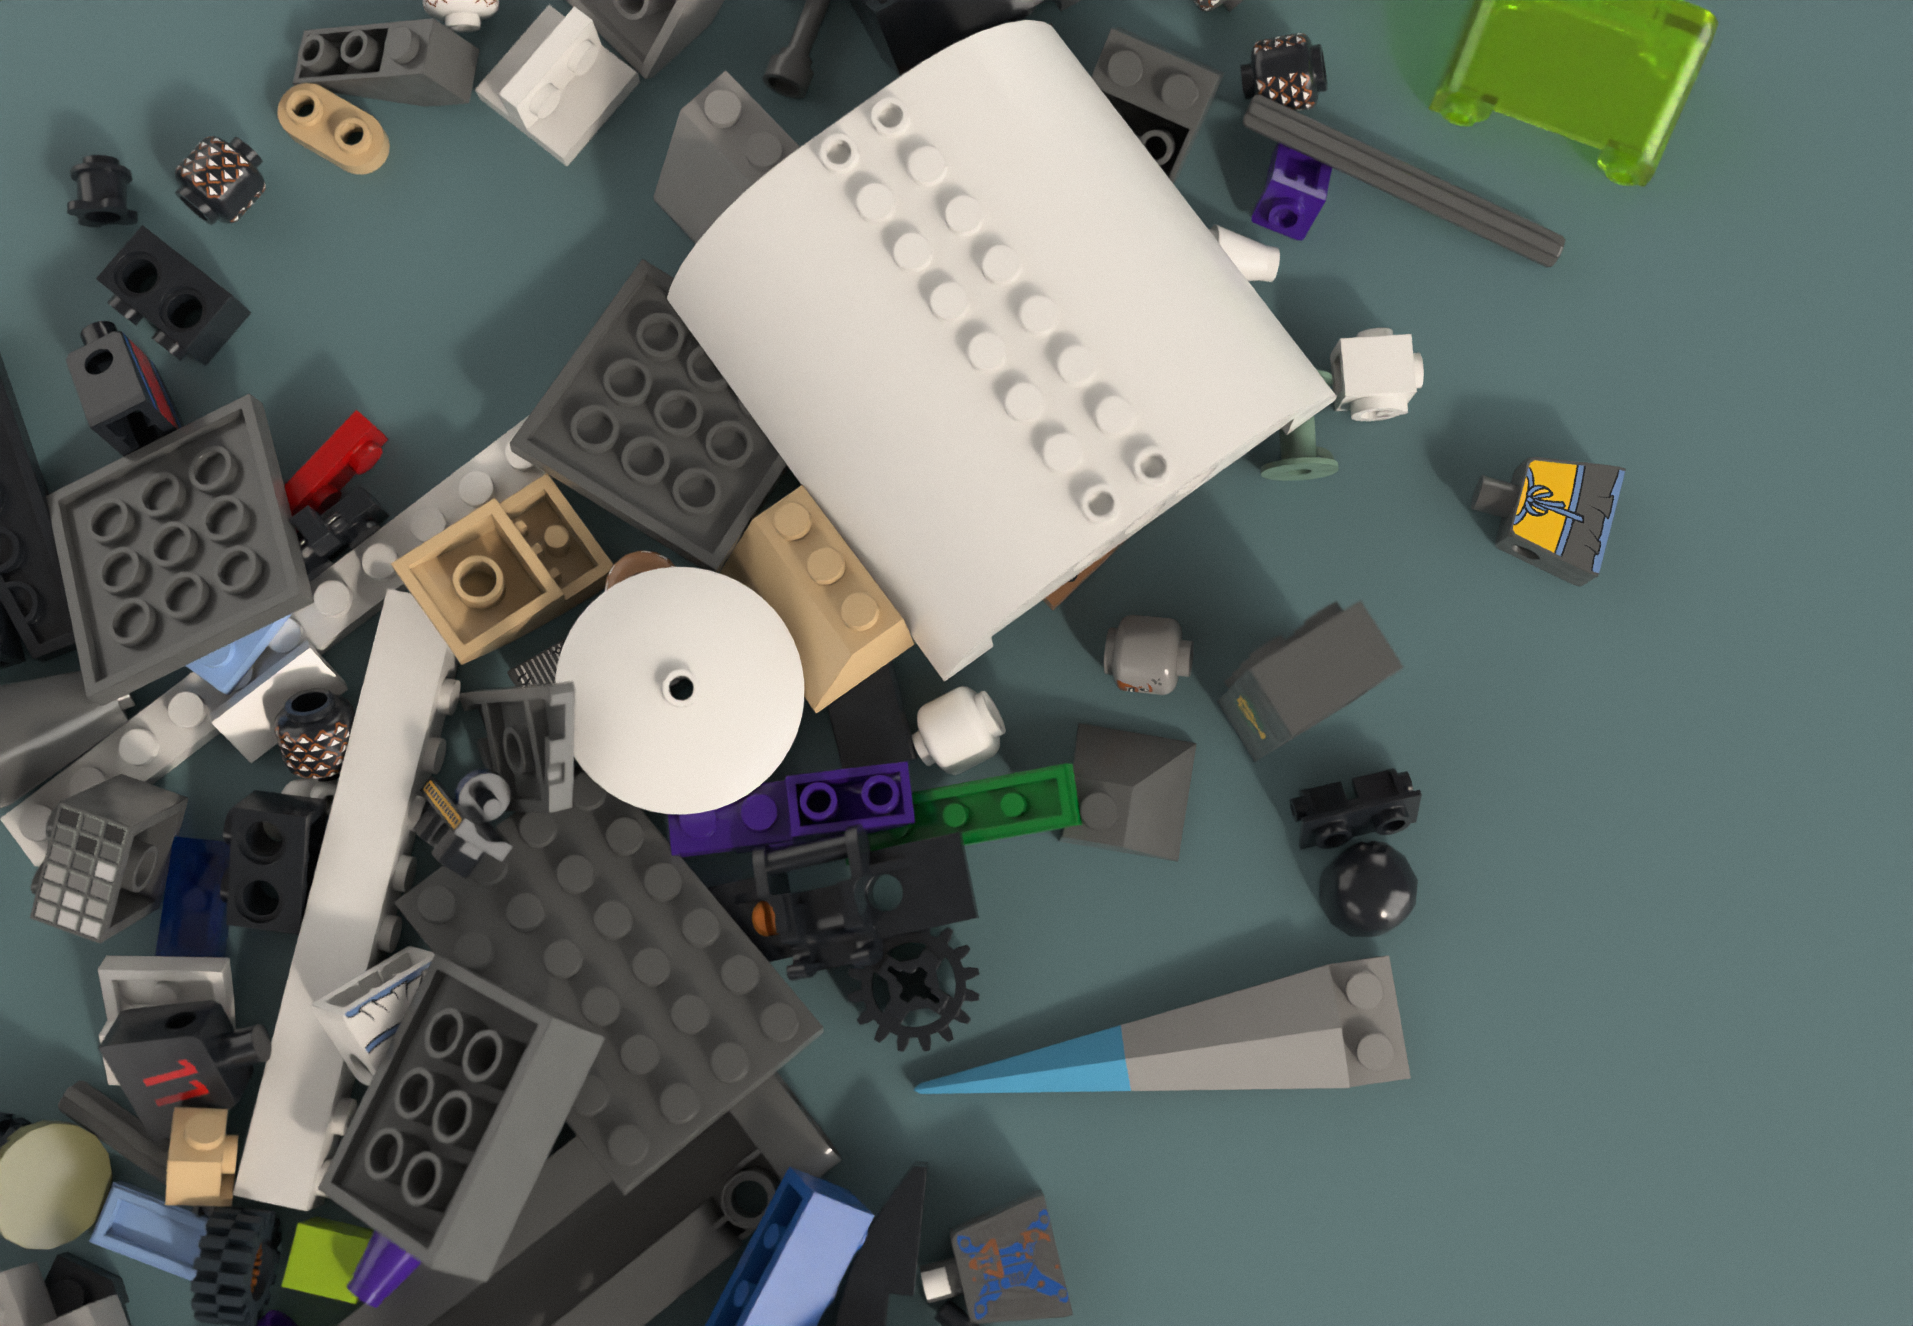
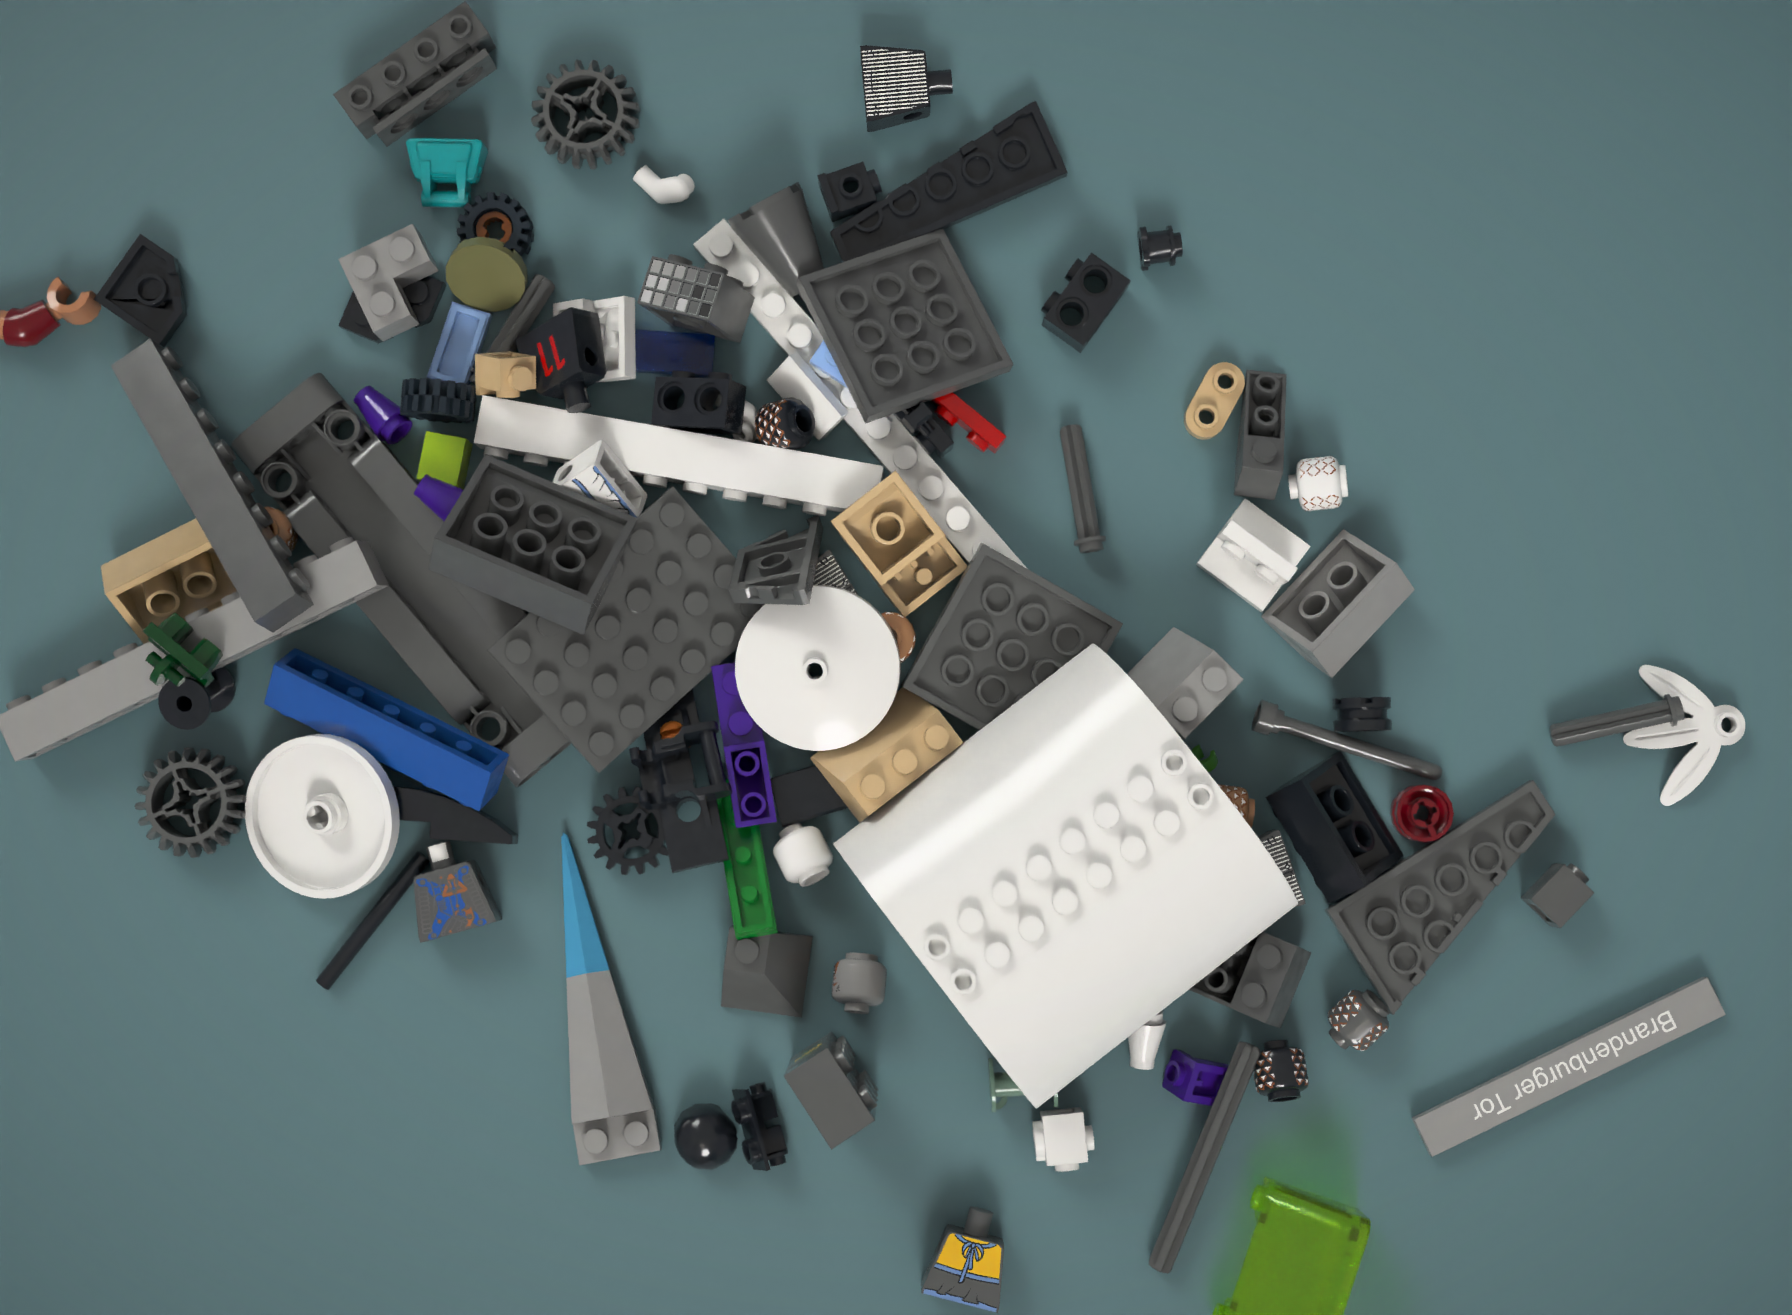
camera: 90 degrees right, 5 degrees up
(114, 382) = (1015, 276): black torso -> none
(220, 179) = (1169, 328): black head -> none
(447, 315) = (1081, 490): none -> dark grey axle
(463, 825) = (726, 528): black hips -> none

